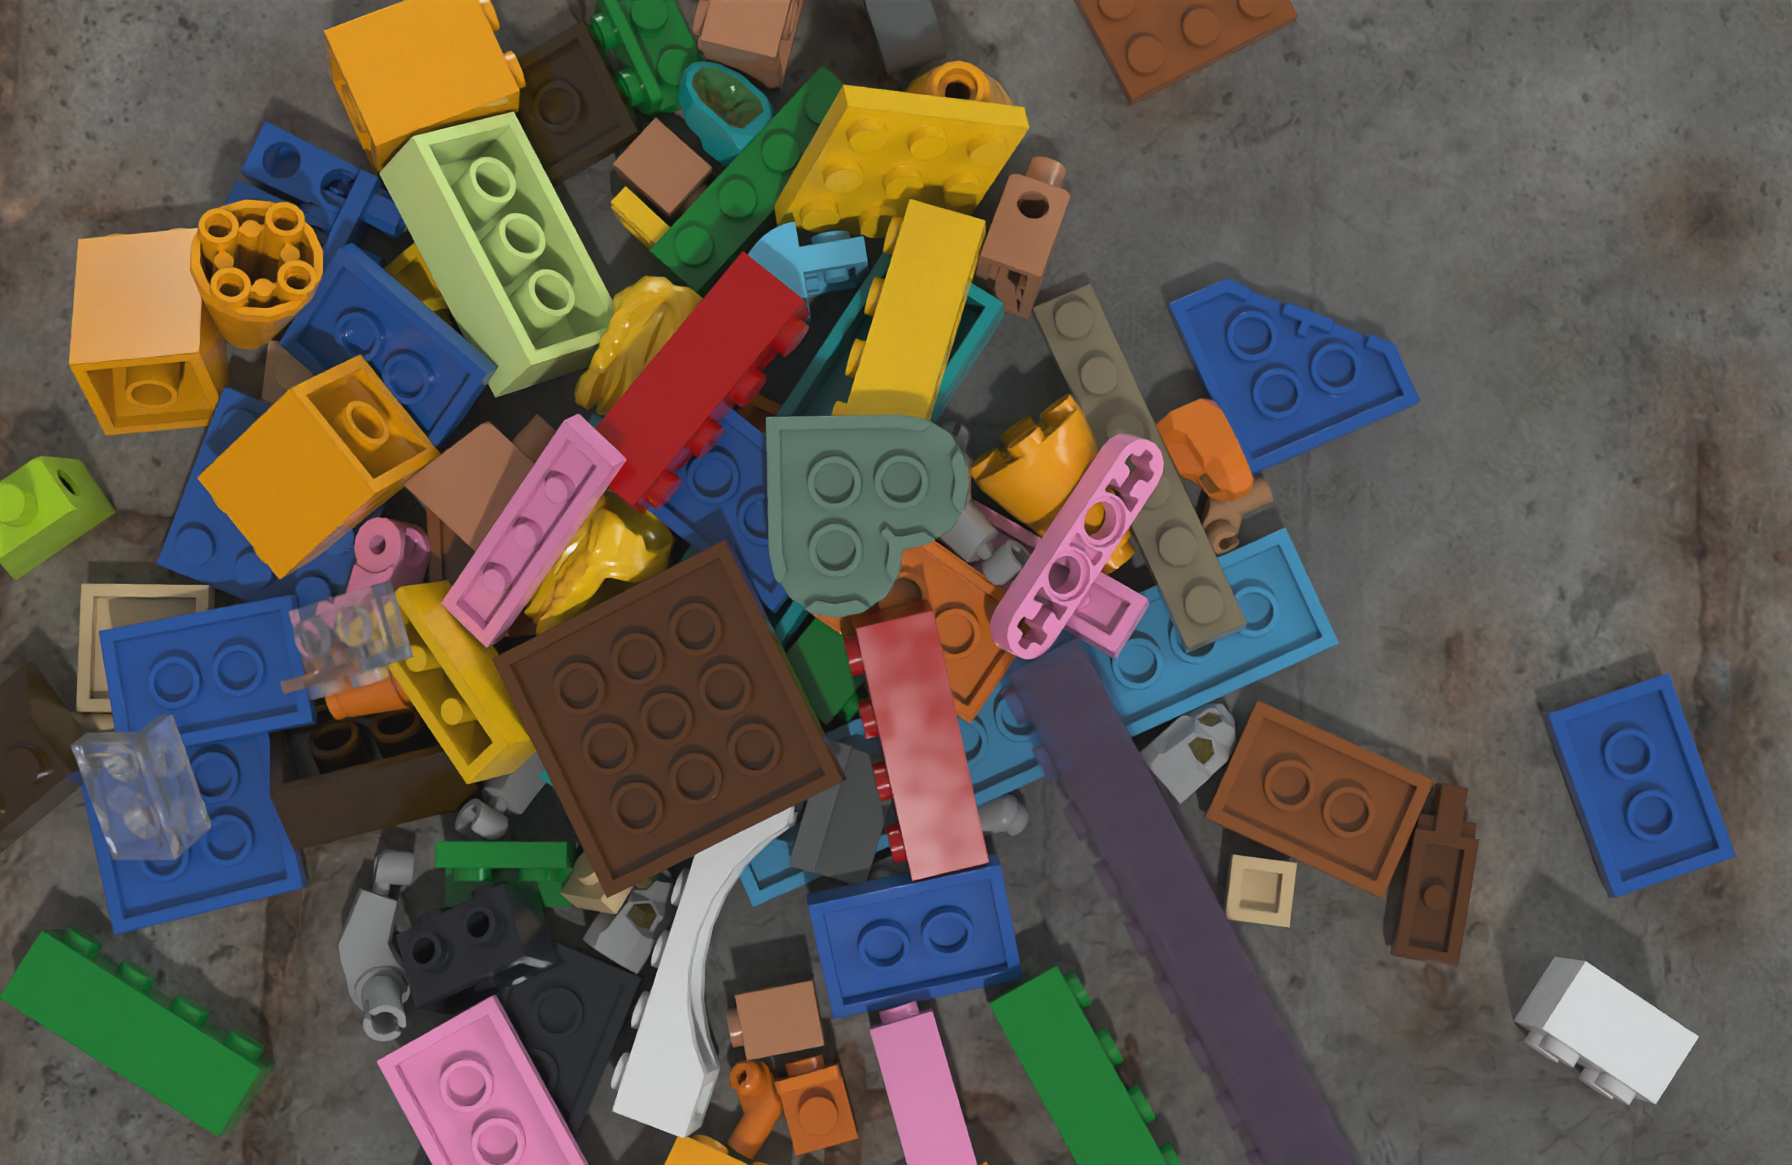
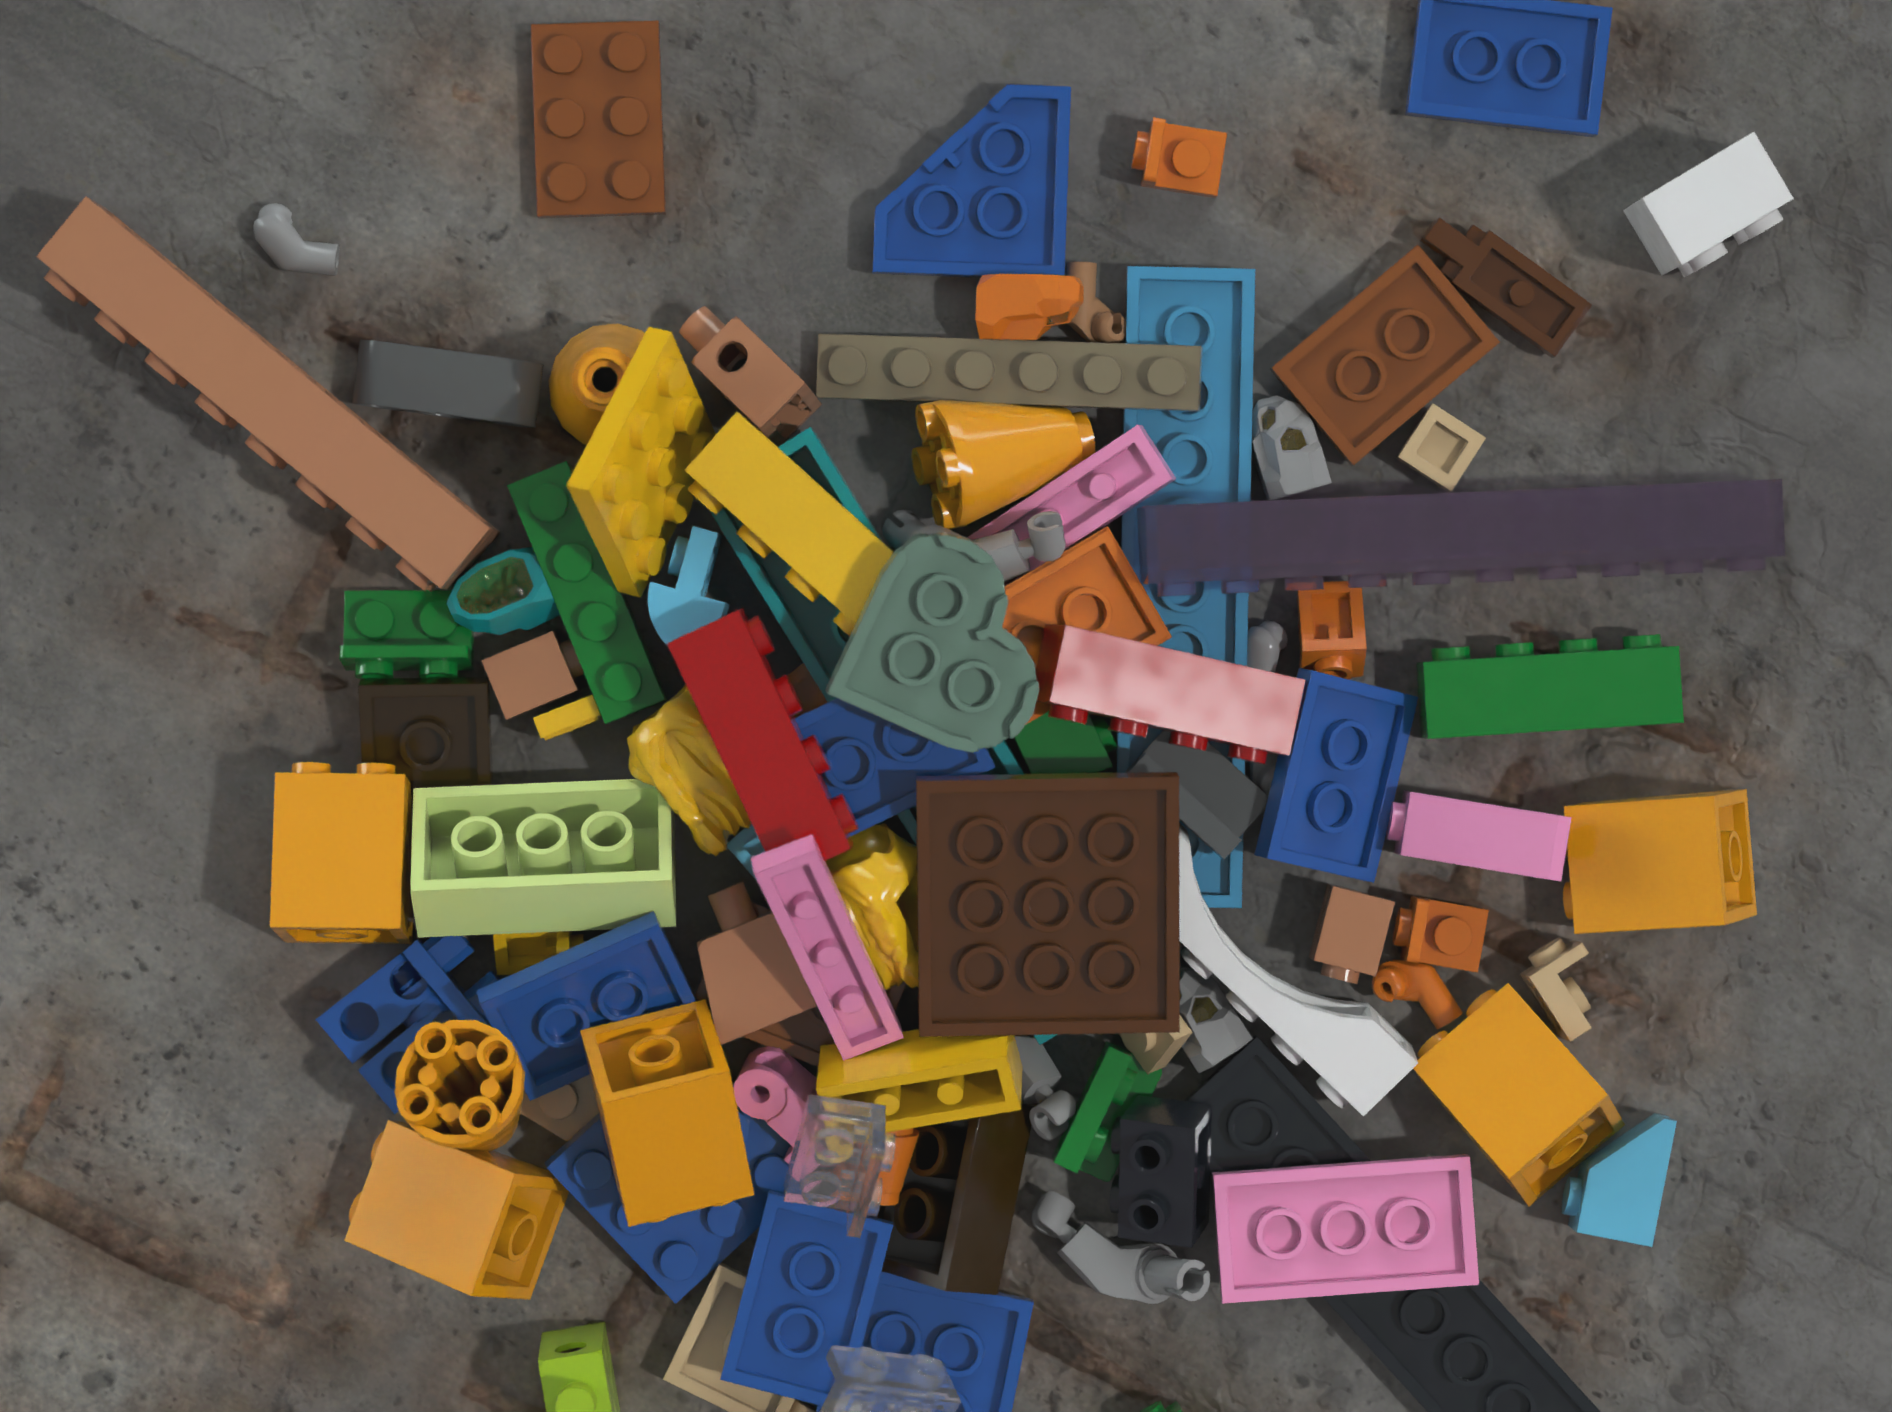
camera: 65 degrees left, 5 degrees up
(1046, 870) = (1332, 630): none -> orange bracket
(1069, 539) = (1070, 462): bright pink beam -> none
(1403, 530) = (1180, 158): none -> orange bracket

